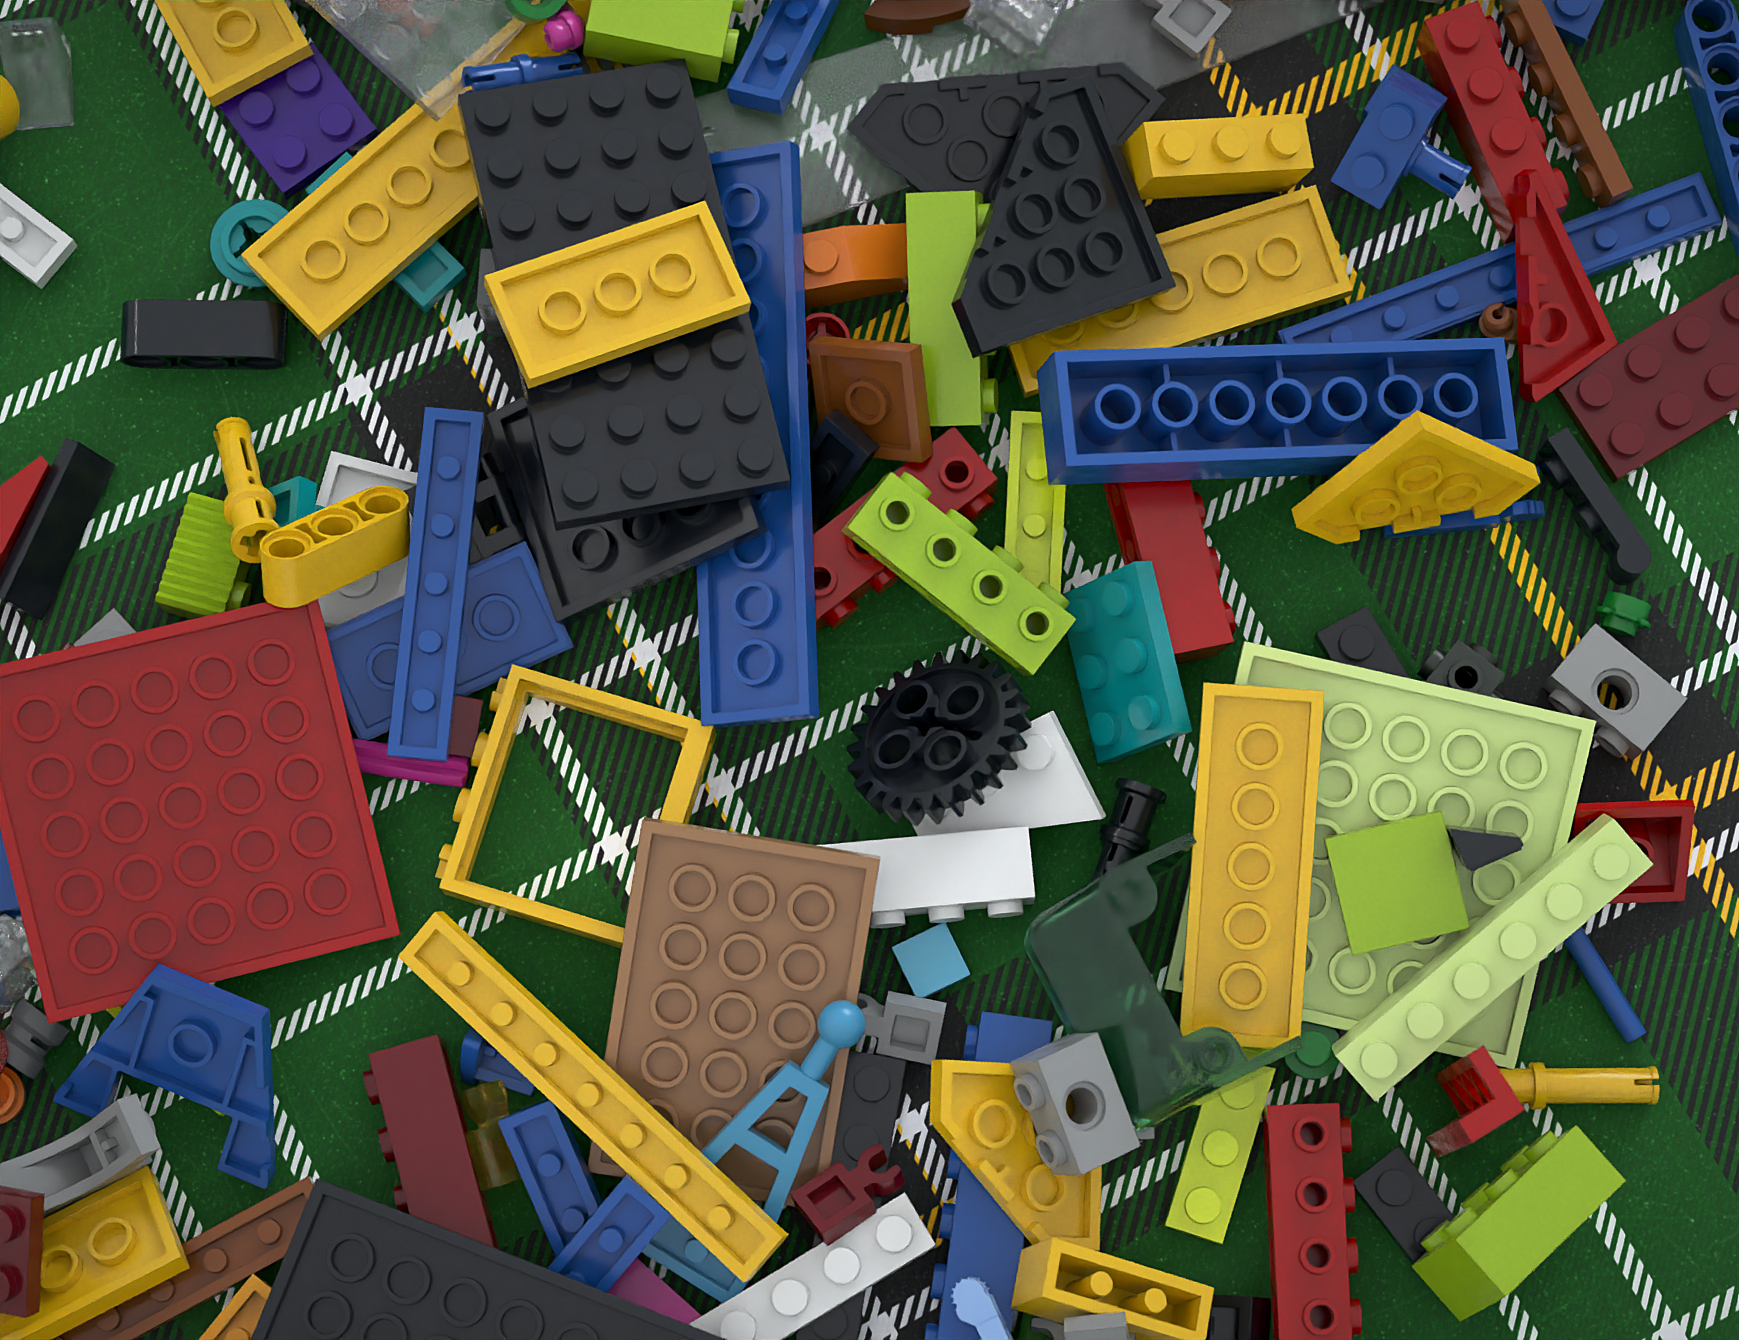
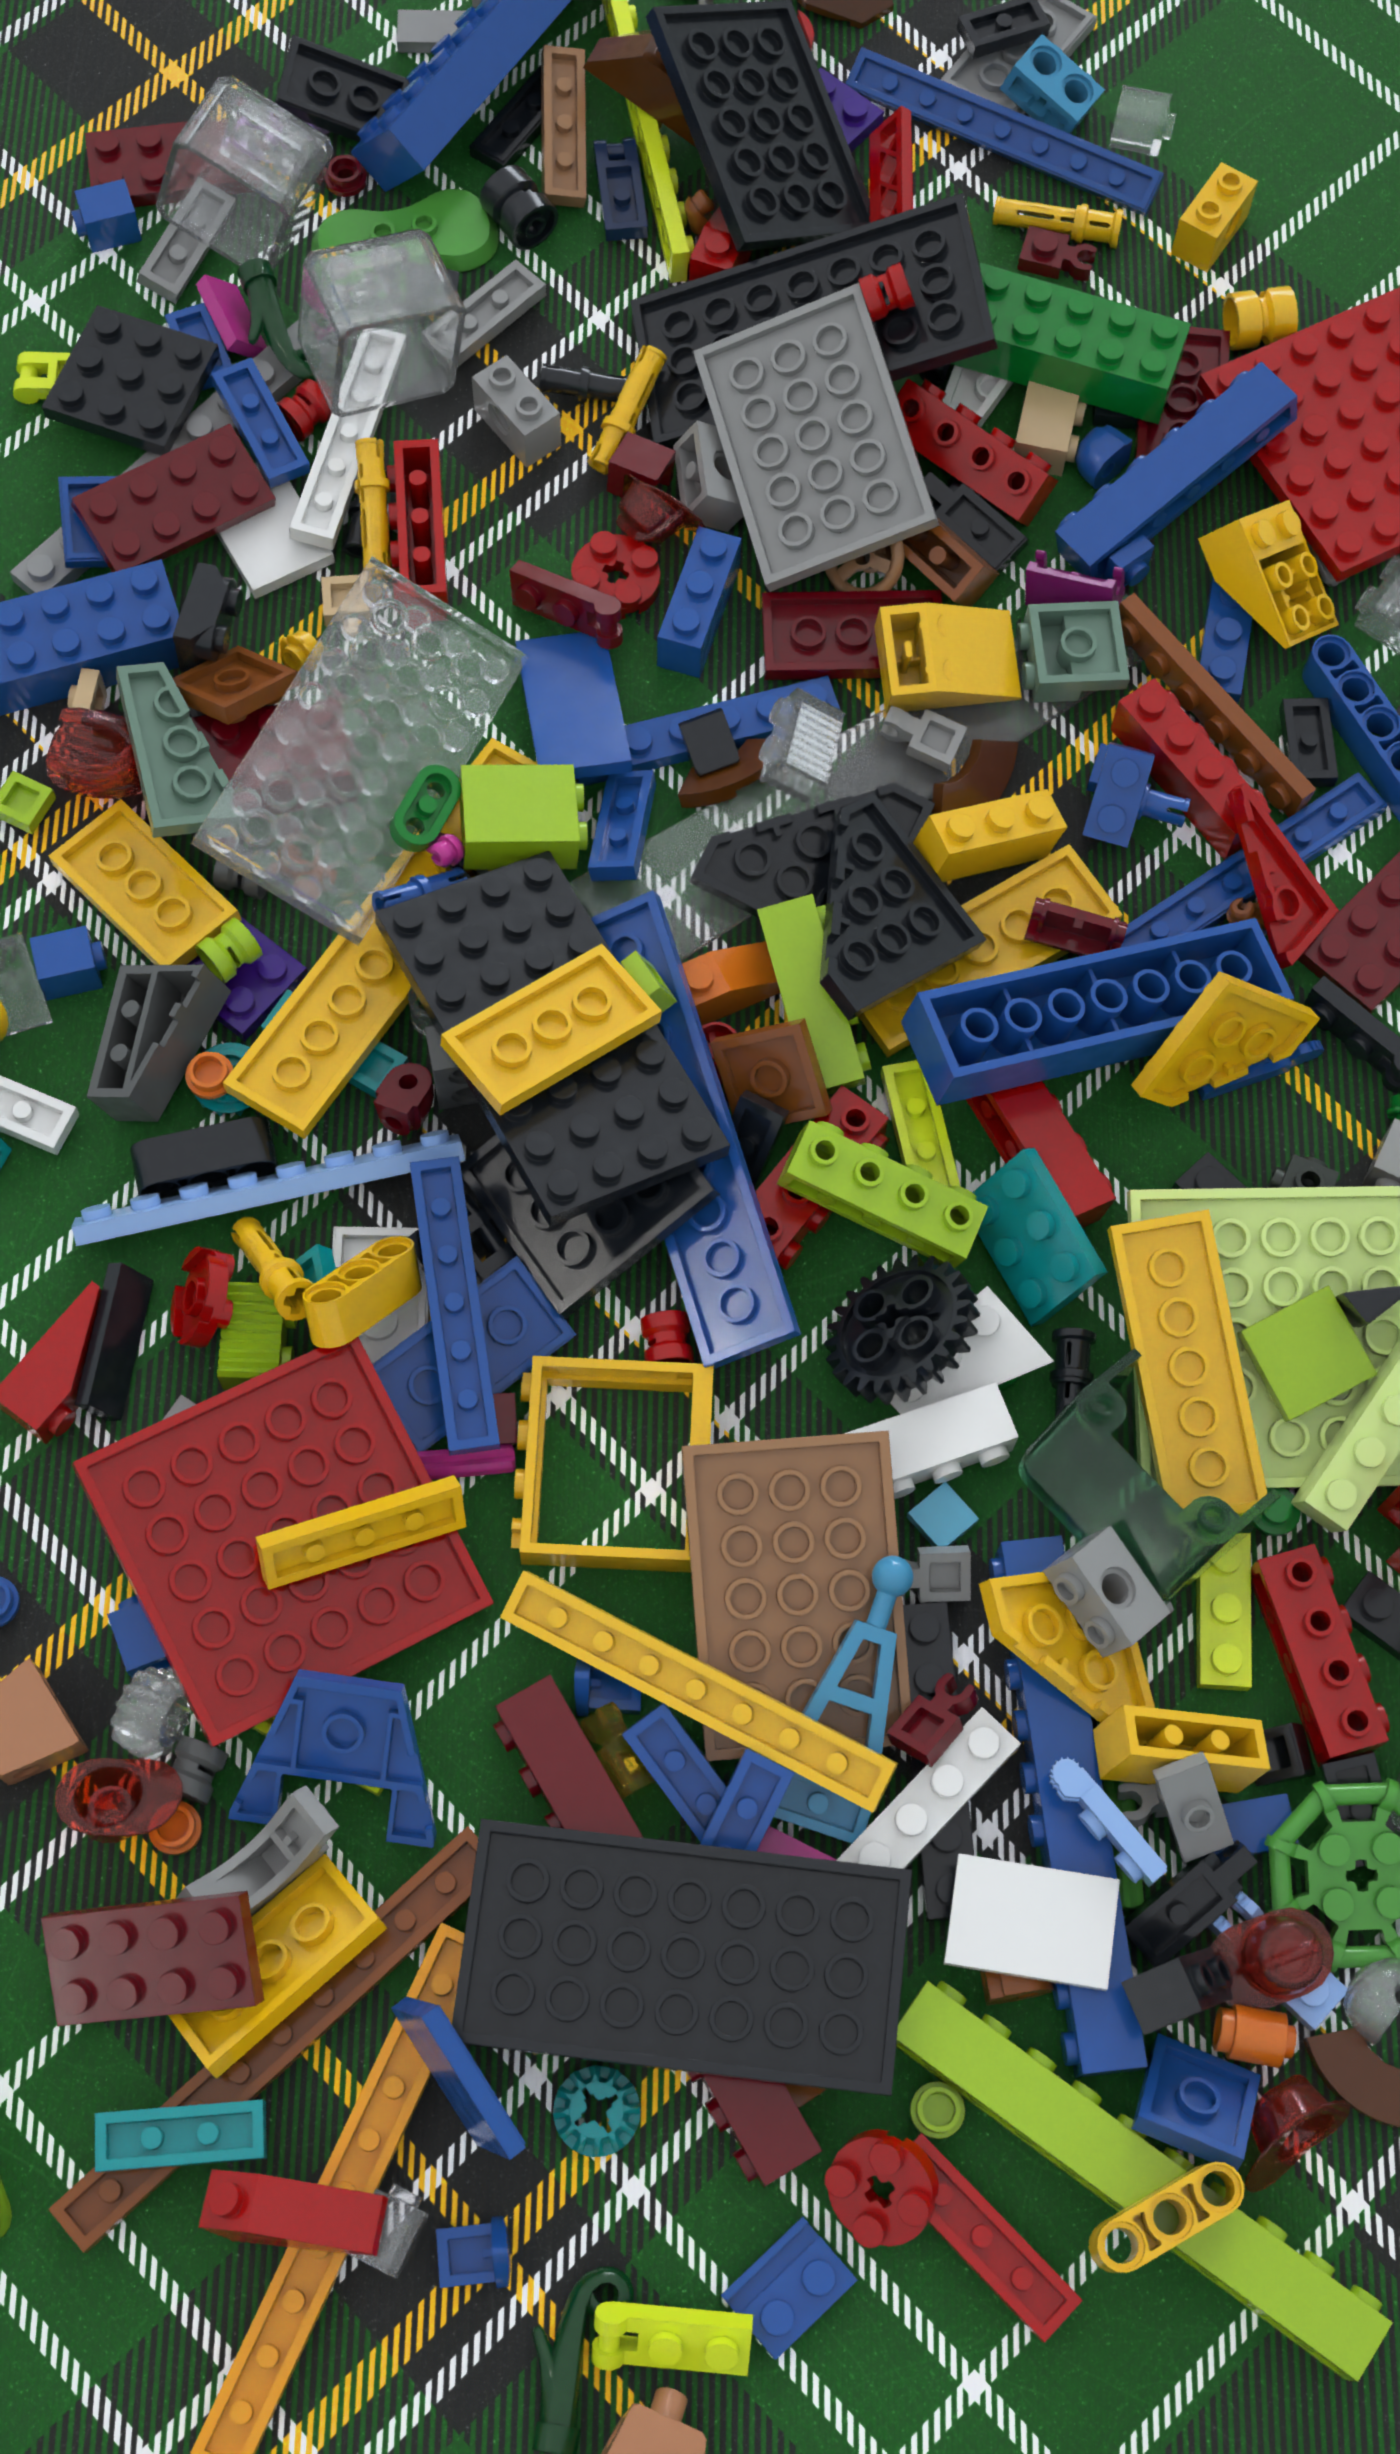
camera: 20 degrees left, 10 degrees down
(103, 58) = (68, 962): none -> blue brick
(156, 506) = (202, 1302): none -> red plate
(175, 178) = (152, 1036): none -> dark grey wedge
(228, 237) = (206, 1074): none -> orange plate
(244, 388) = (248, 1191): none -> light blue plate
(265, 825) = (361, 1532): none -> yellow plate
(300, 90) = (229, 950): none -> lime wheel
(447, 317) = (405, 1098): none -> dark red piece
(673, 676) = (667, 1336): none -> red wheel
(752, 255) = (649, 980): none -> lime plate
(1228, 81) = (981, 777): none -> reddish brown tile
(1286, 298) = (1073, 929): none -> dark red hinge
(1650, 118) = (1309, 739): none -> black plate

